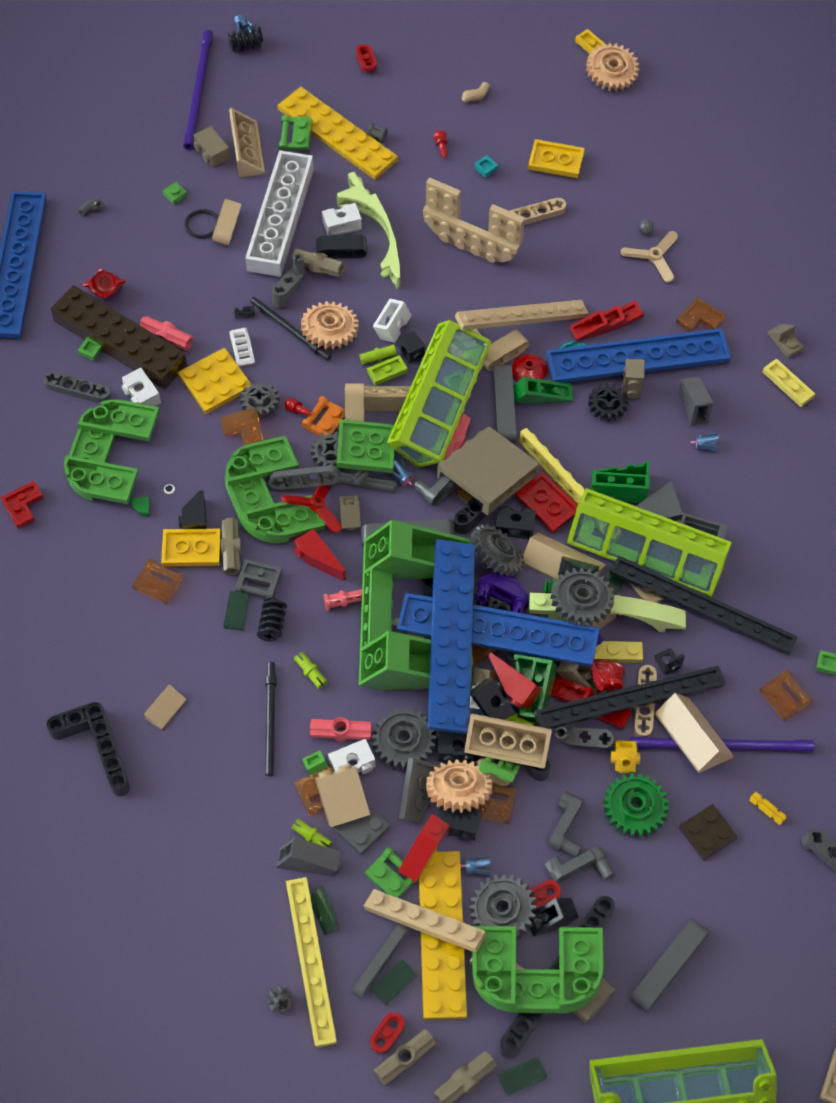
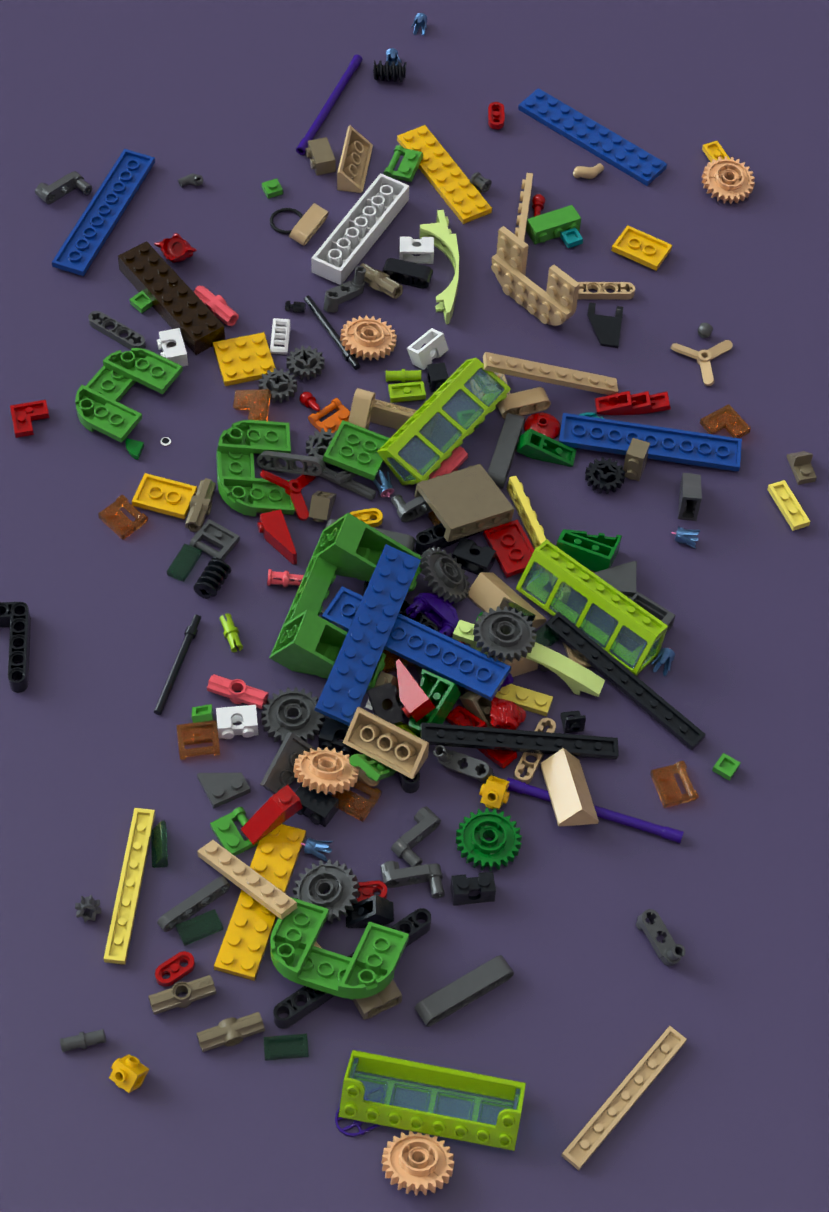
camera: 15 degrees right, 5 degrees down
(165, 707) = (85, 626): tan slope -> none
(194, 513) = (179, 466): black slope -> none
(279, 368) = (305, 362): none -> dark grey gear
(308, 857) = (163, 793): dark grey slope -> none
(311, 834) = (174, 775): lime pin -> none
(342, 795) = (214, 747): tan brick -> none
(393, 512) = (367, 514): none -> yellow plate
(429, 147) = (524, 206): none -> tan plate
(463, 157) = (551, 224): none -> bright green brick
(466, 55) = (592, 137): none -> blue plate
(551, 249) = (606, 327): none -> black flag
(630, 862) = (462, 886): none -> black brick
(708, 832) = (549, 884): dark brown plate -> none
(731, 571) = (665, 656): none -> flat silver piece
(768, 808) = (616, 880): yellow axle -> none

